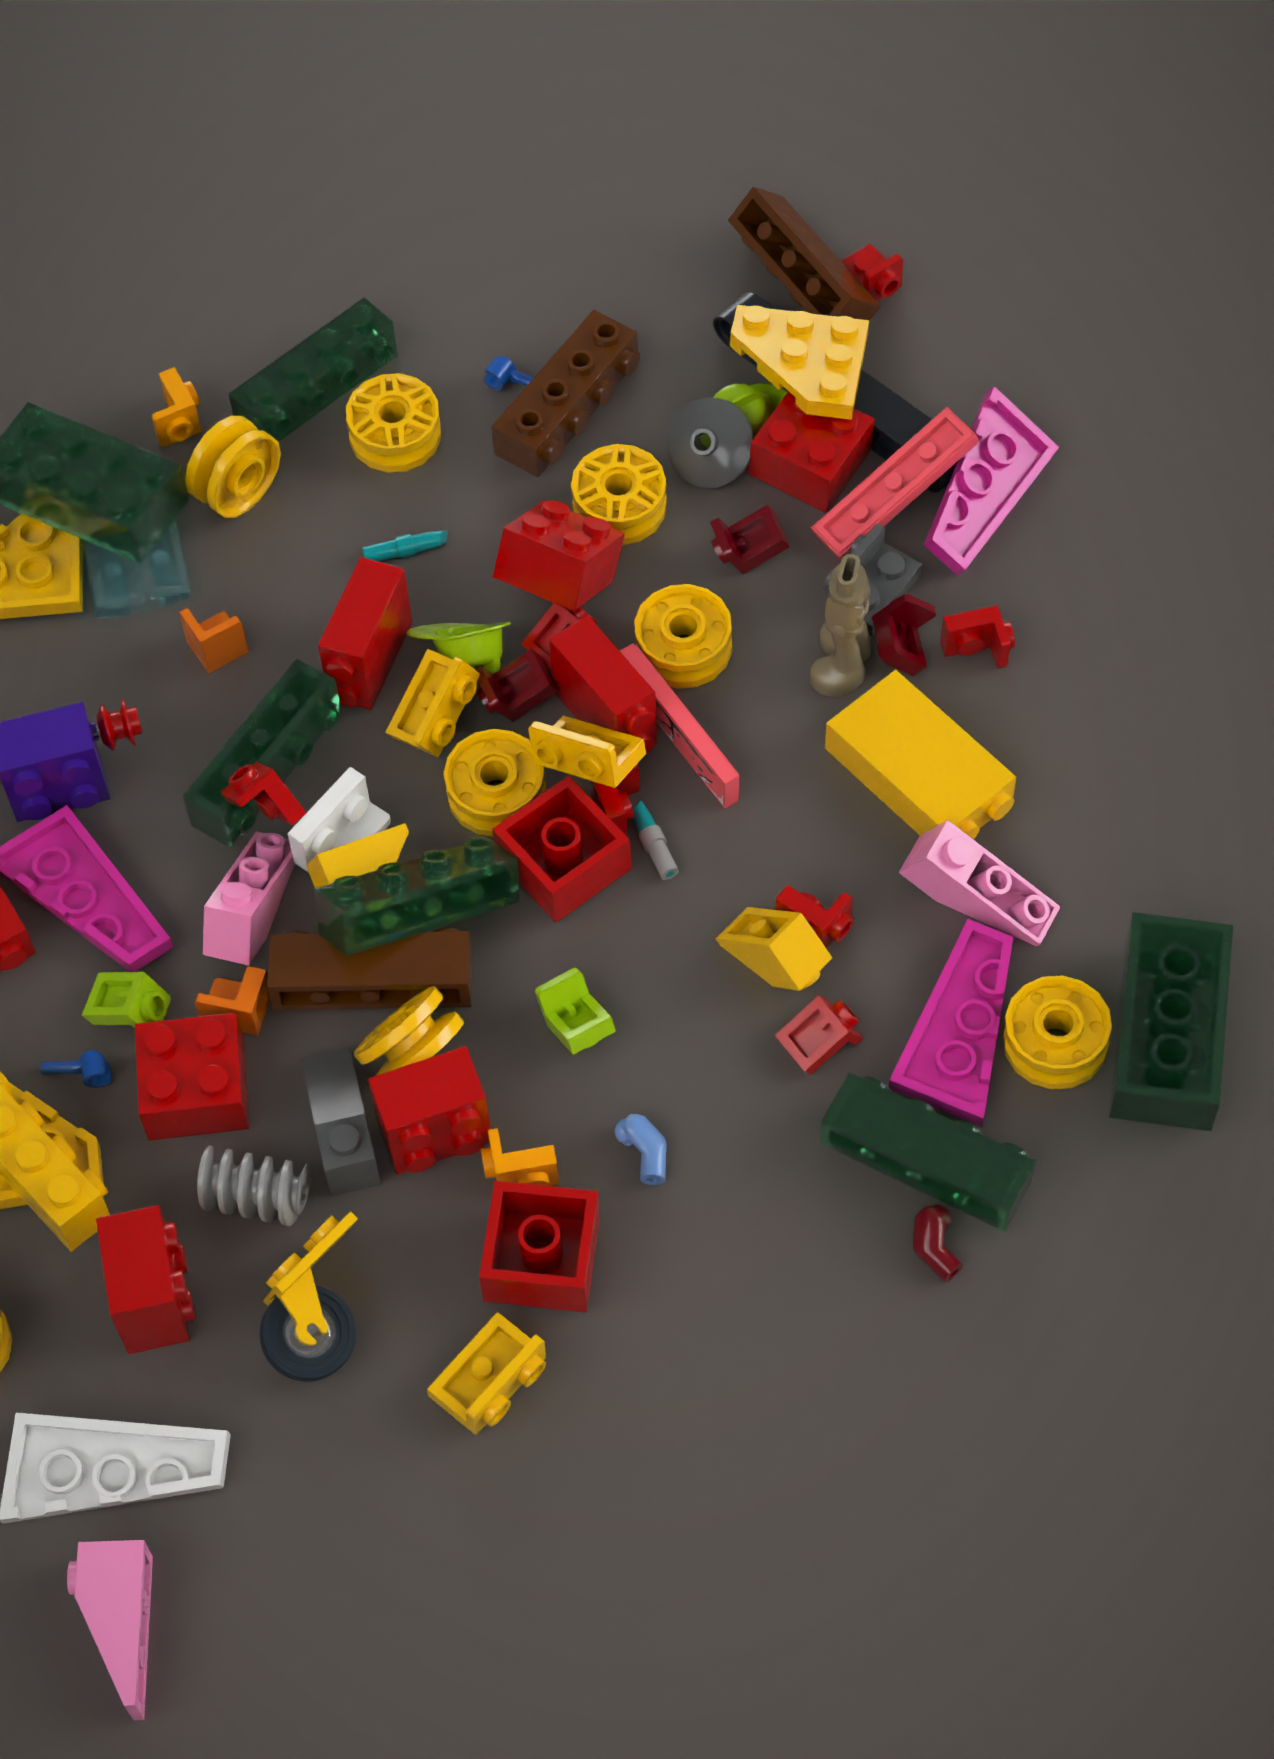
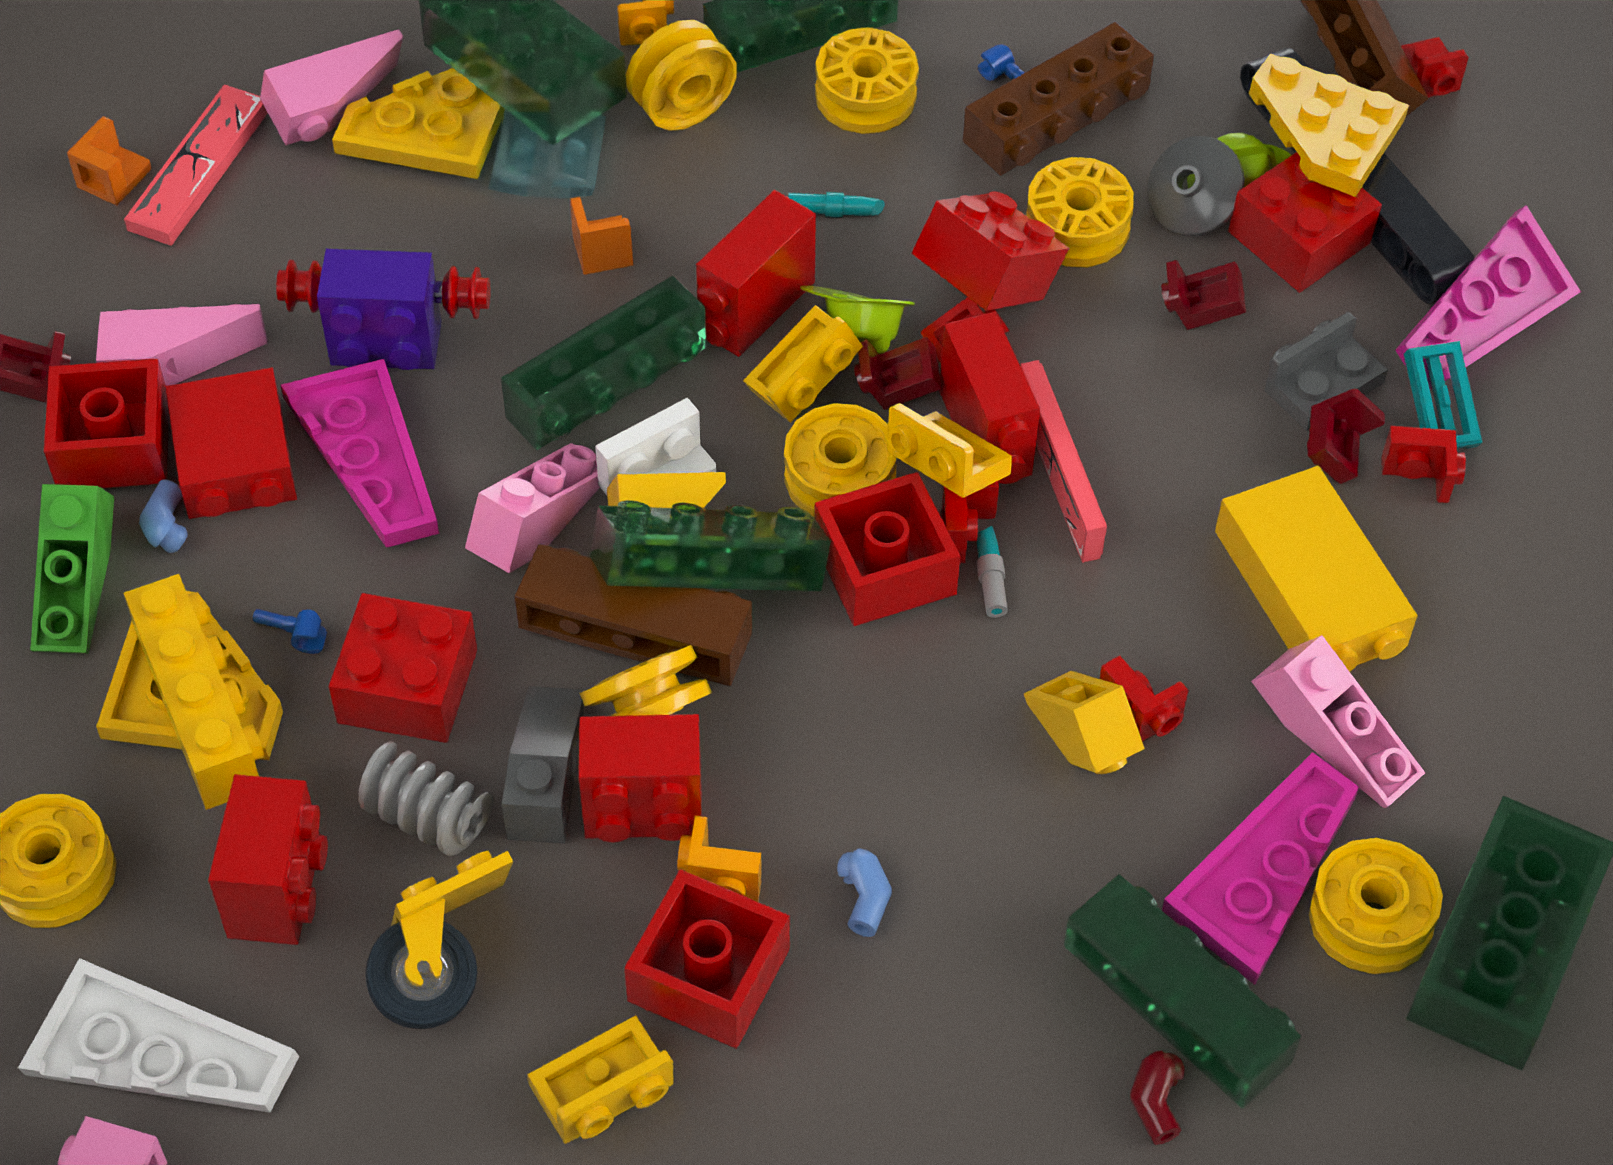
camera: 15 degrees right, 5 degrees down
(125, 999) = (367, 568): lime bracket -> none
(245, 998) = (491, 606): orange panel -> none
(267, 792) = (594, 403): red bracket -> none
(573, 1012) = (837, 721): lime bracket -> none
(690, 612) = (1099, 370): yellow wheel -> none
(819, 1033) = (1103, 825): red bracket -> none
(844, 631) = (1276, 416): dark tan piece -> none
(896, 482) = (1387, 275): coral tile -> none
(990, 566) = (1421, 393): none -> teal tile

